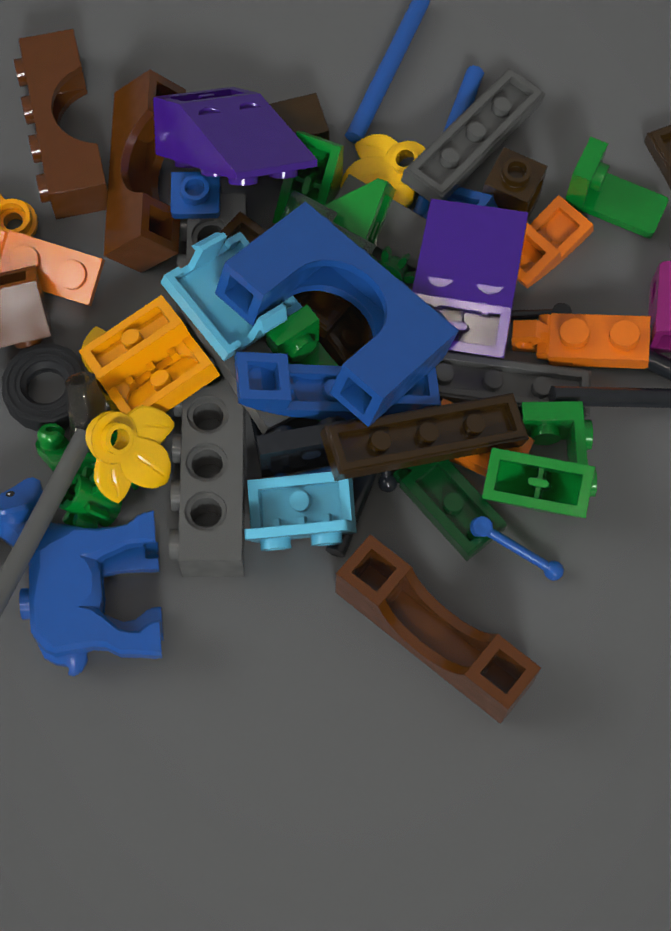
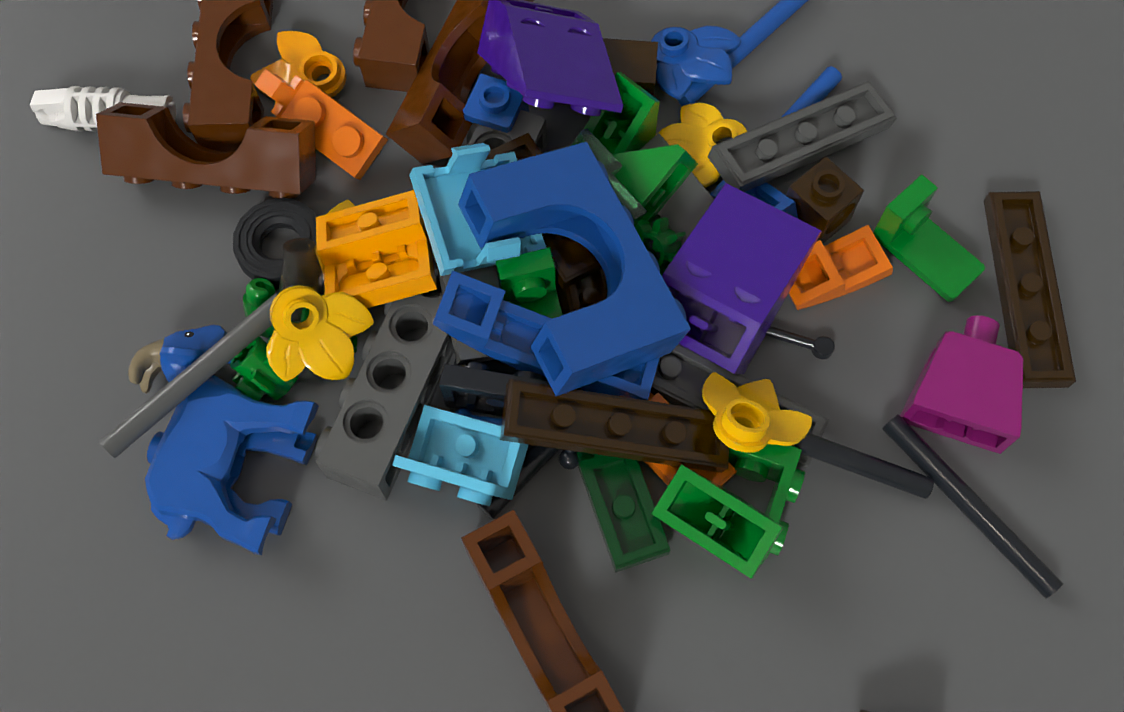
camera: 25 degrees right, 0 degrees up
(351, 95) = (693, 57): none -> blue plate
(483, 527) = (641, 545): blue hinge -> none
(529, 388) = (751, 416): none -> yellow plate
(585, 340) = (836, 385): orange hinge -> none

